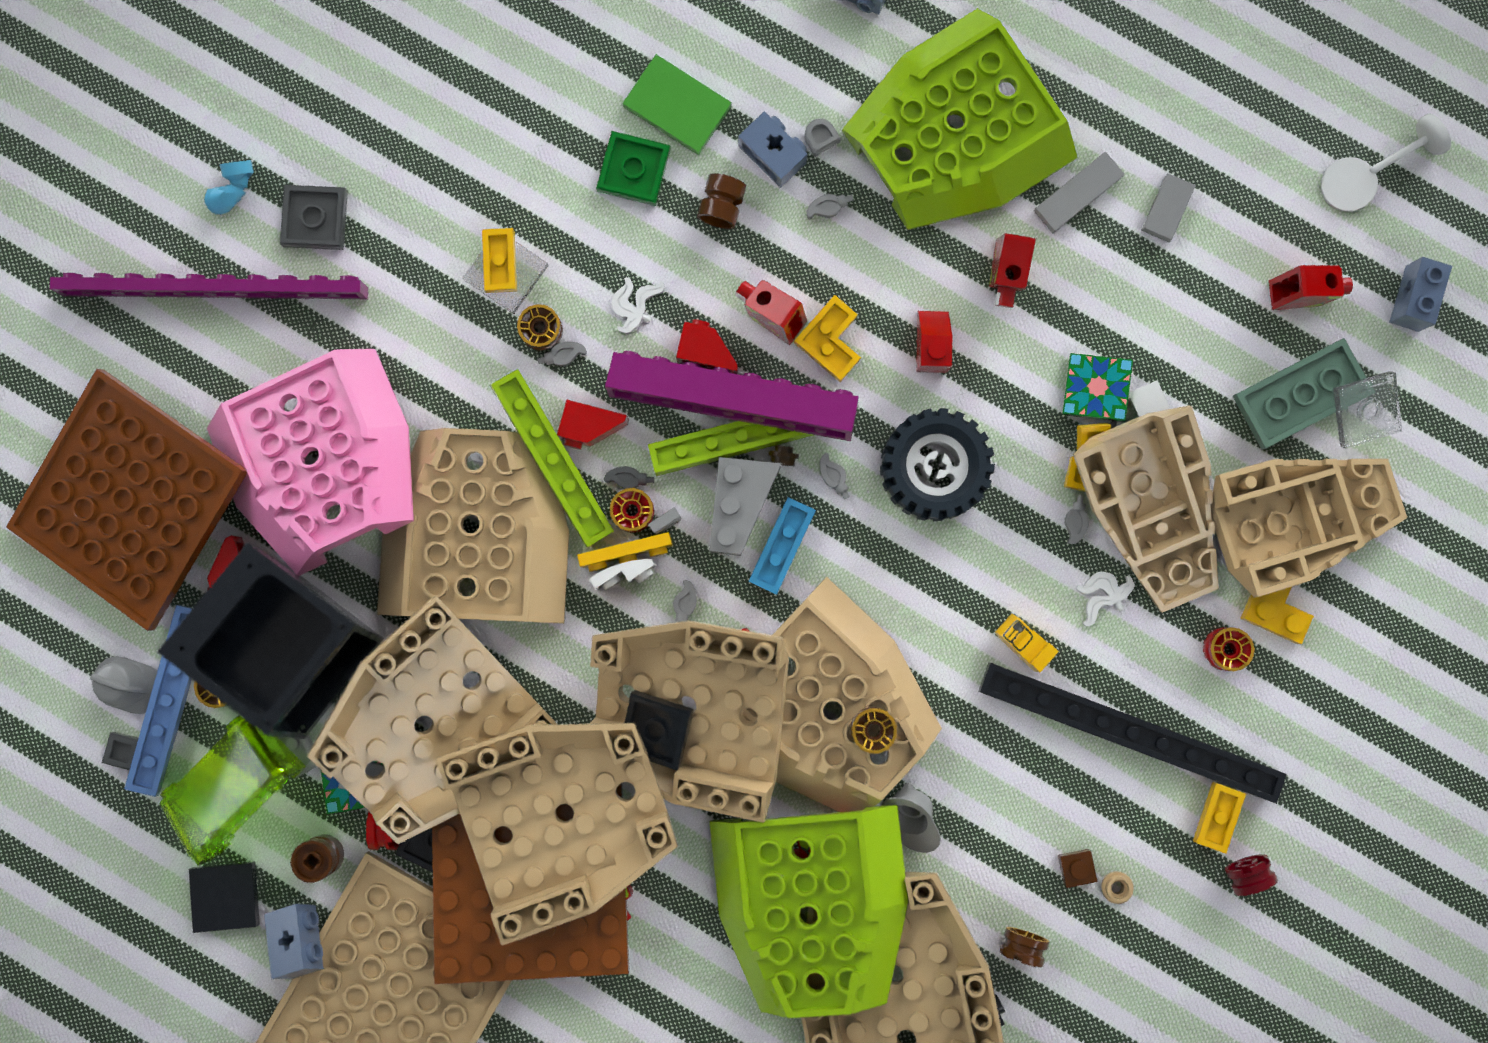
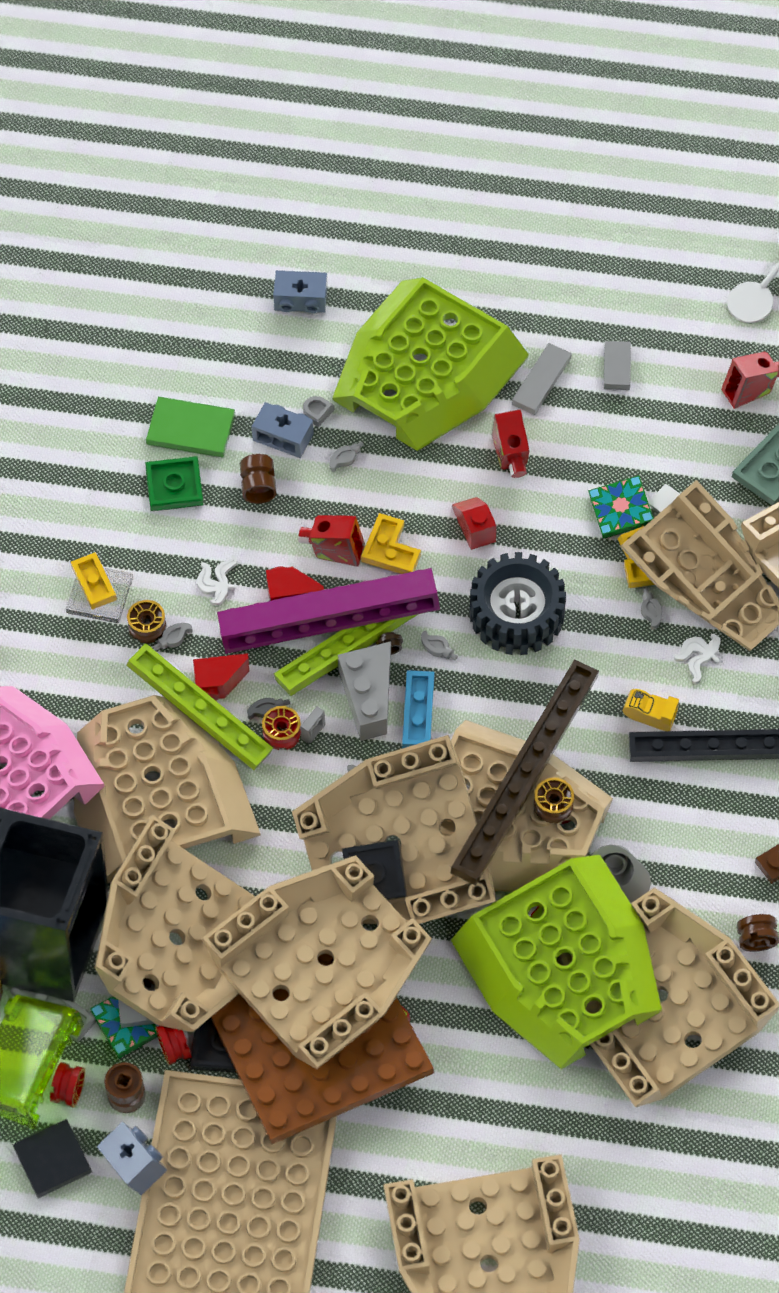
camera: 20 degrees left, 25 degrees down
(262, 831) = (67, 1084): none -> red wheel
(625, 552) = (289, 758): yellow plate -> none
(633, 570) = (298, 771): white slope -> none
(856, 686) = (524, 773): none -> dark brown plate

